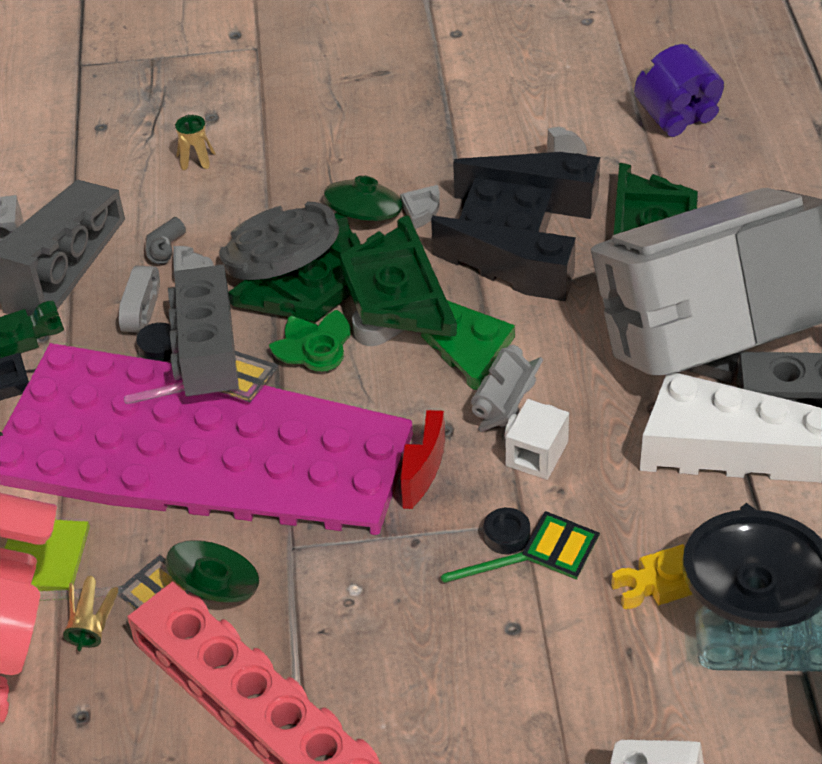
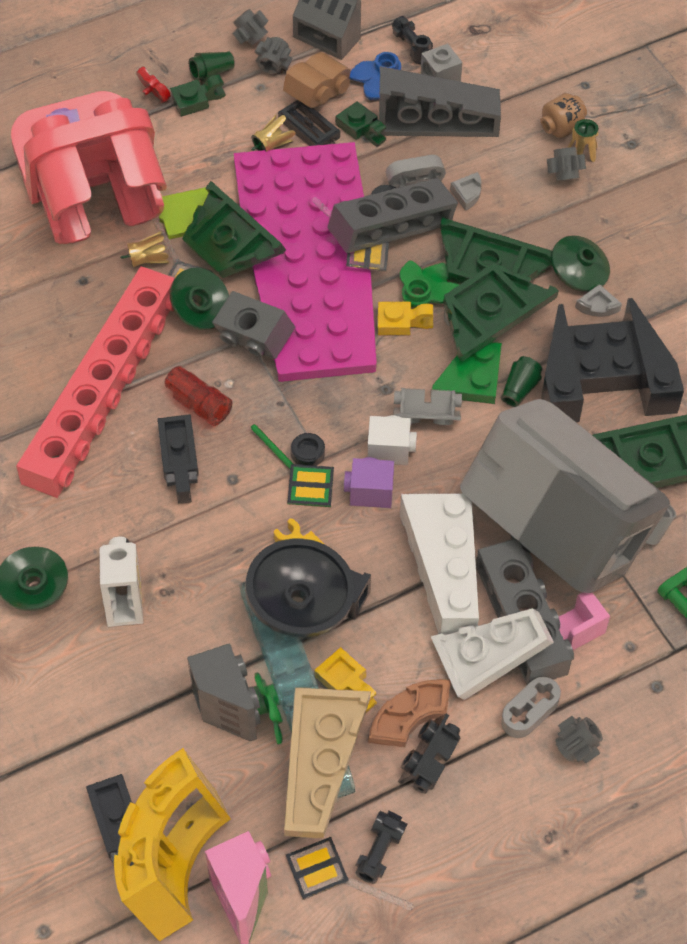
camera: 65 degrees right, 10 degrees up
(128, 506) = (228, 235): none -> dark green wing
(146, 144) = (562, 114): none -> medium nougat head
(159, 241) = (479, 163): dark grey arm -> none
(218, 165) = (566, 163): none -> dark grey gear
(279, 241) = (504, 228): dark grey tile -> none
(305, 494) = (253, 325): none -> dark grey brick
(351, 381) = (398, 317): none -> yellow plate
(365, 622) = (193, 392): none -> clear red axle
(423, 461) = (333, 382): red slope -> none
(458, 671) = (178, 454): none -> black hinge
(502, 295) = (521, 380): none -> dark green cone
(593, 473) = (370, 482): none -> medium lavender brick

